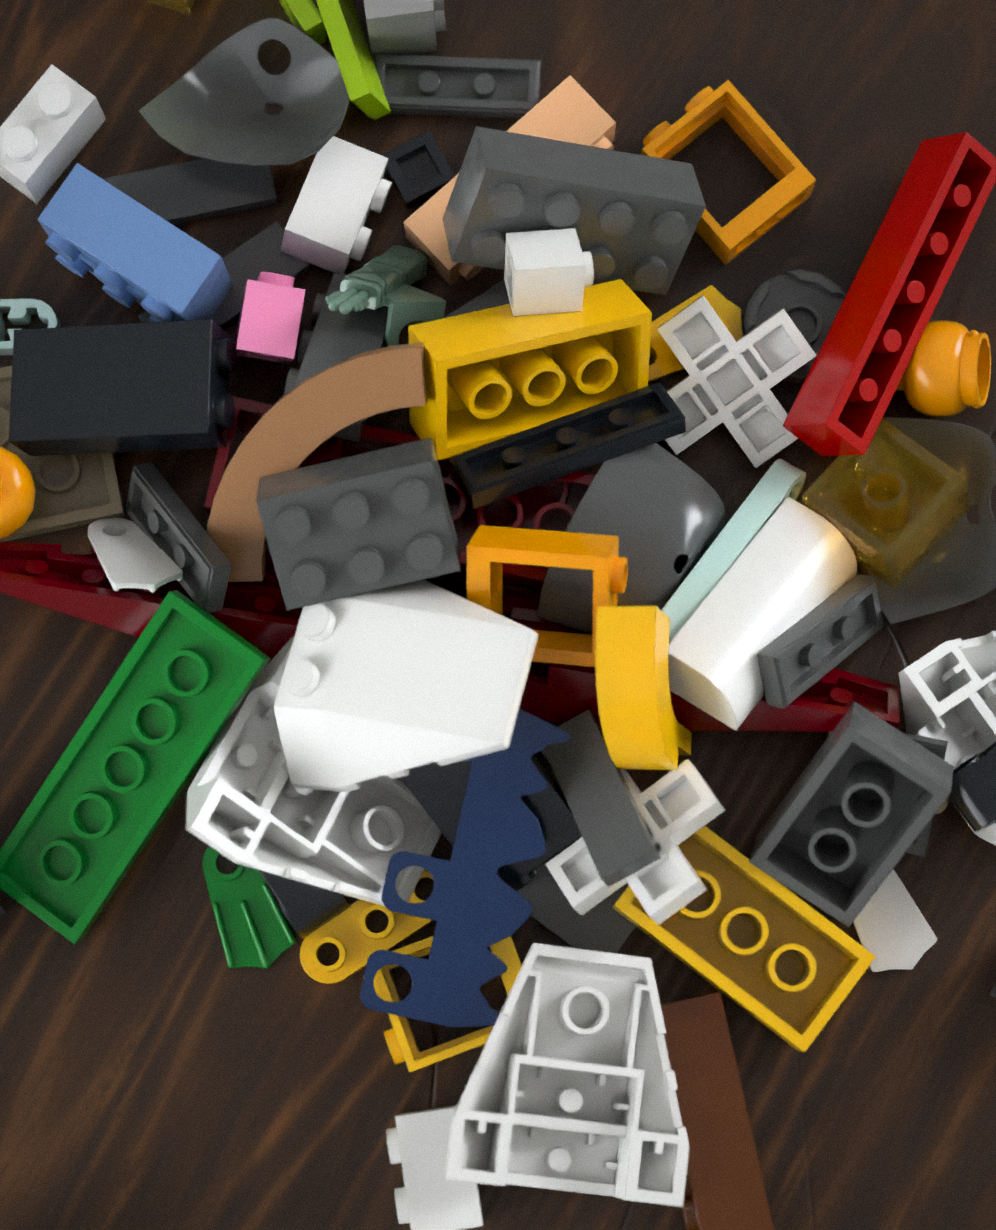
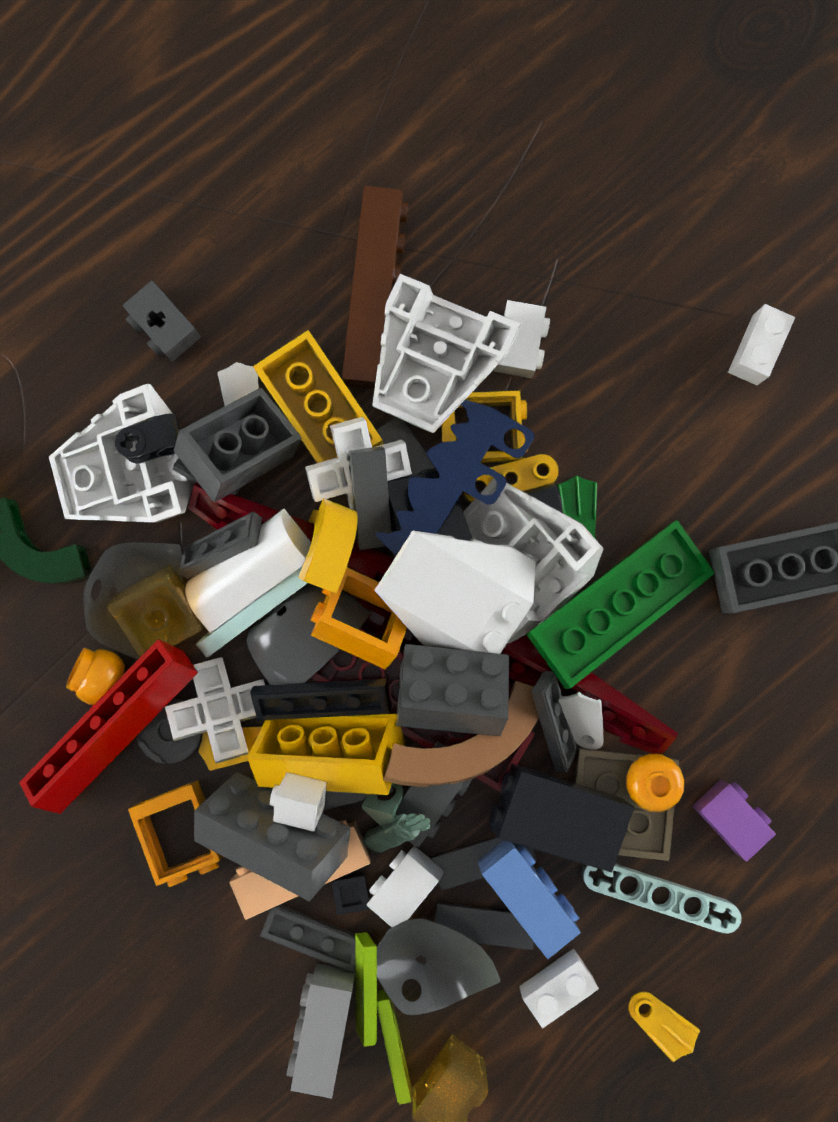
camera: 165 degrees left, 5 degrees up
(269, 318) = (464, 830): bright pink brick -> none

